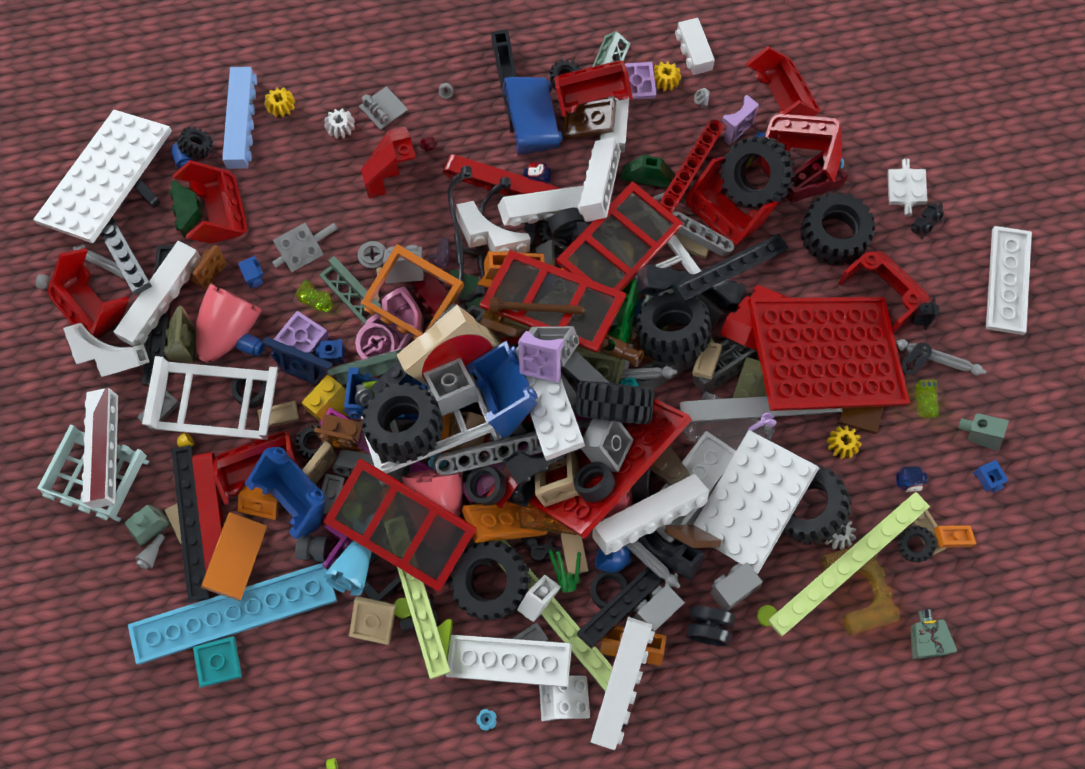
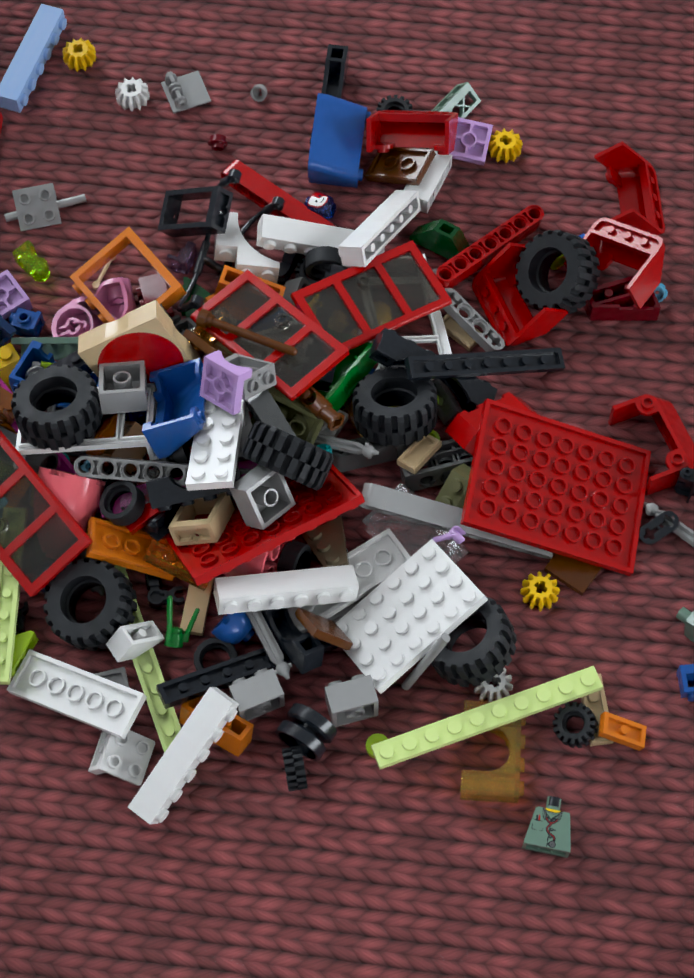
camera: 20 degrees right, 5 degrees down
(351, 281) = (74, 256): sand green fence -> none
(366, 250) = (105, 232): light grey gear -> none
(392, 149) = (161, 145): red panel -> none
(403, 270) = (131, 261): light grey brick -> none
(463, 211) = (215, 221): none -> black window
(485, 713) = (28, 743): medium azure plate -> none
(599, 491) = (242, 531): black tyre -> none
(695, 46) = (550, 123): white brick -> none
(702, 97) = (536, 180): light grey plate -> none
(712, 660) = (294, 768): none -> black tyre
(740, 121) = (567, 214): lavender piece -> none
(787, 533) = (426, 661): none -> light grey bar
(844, 209) = (633, 338): black tyre -> none
(911, 479) = (600, 654): clear blue head -> none
(927, 398) = (654, 574): clear neon green leg -> none

